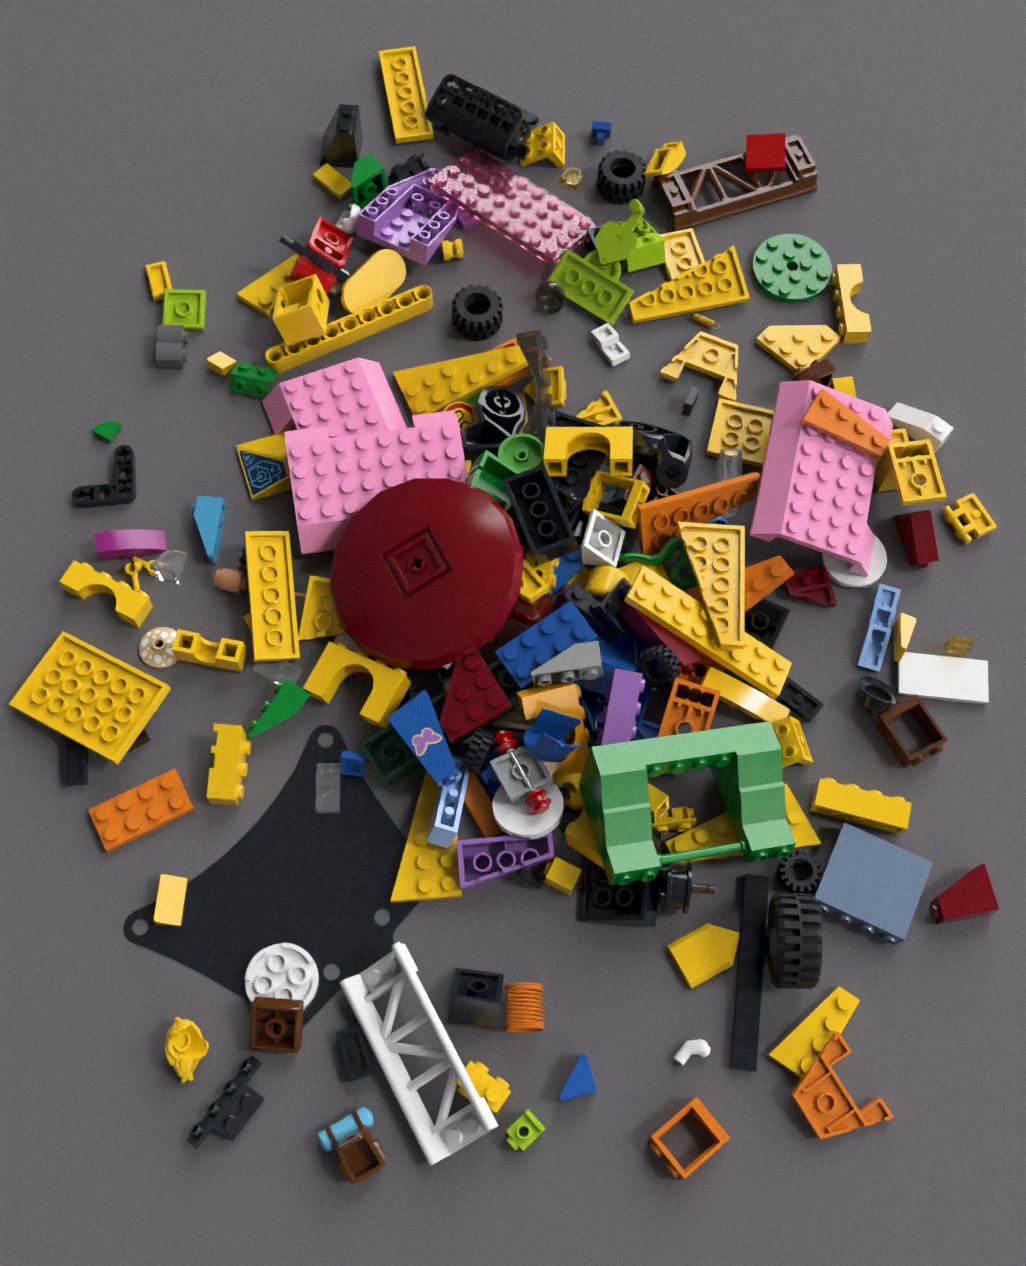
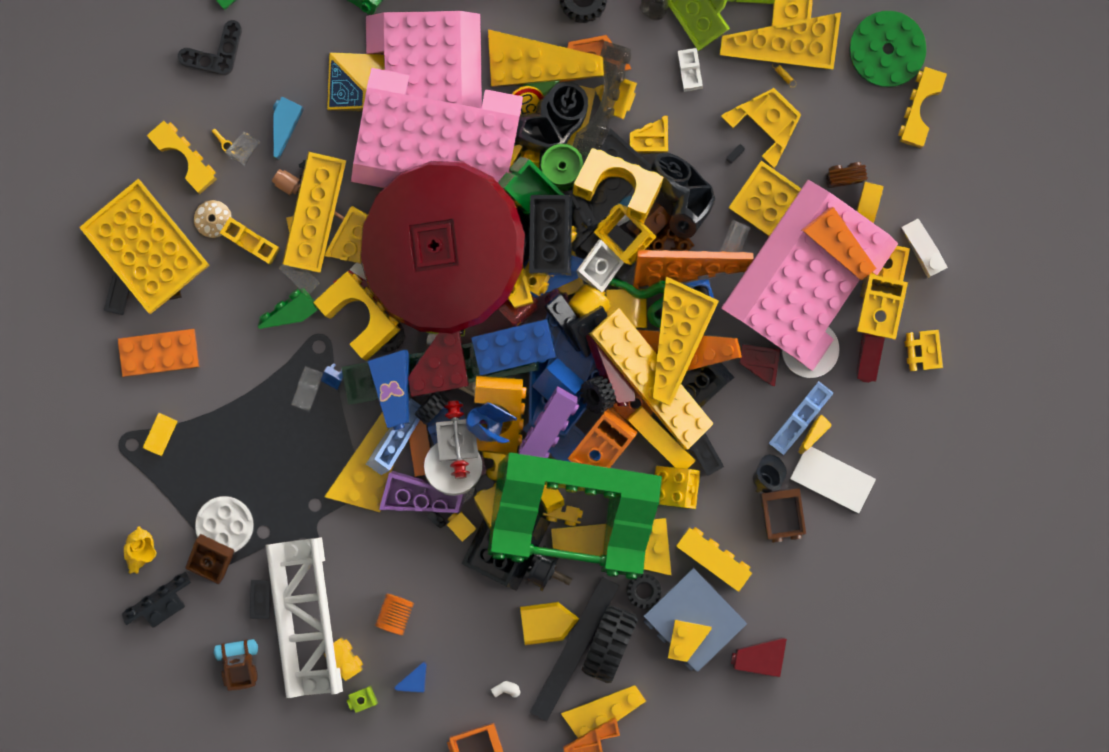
camera: 20 degrees right, 20 degrees up
(130, 543) = (214, 117): magenta slope -> none
(134, 573) = (209, 143): yellow hand -> none
(228, 765) = (235, 345): yellow wedge -> none
(476, 997) = (362, 592): black slope -> none
(574, 663) = (528, 373): light grey slope -> none
(798, 344) = (857, 130): yellow plate -> none
(875, 905) = (686, 639): none -> yellow wing
(958, 644) = (858, 457): clear yellow tile -> none

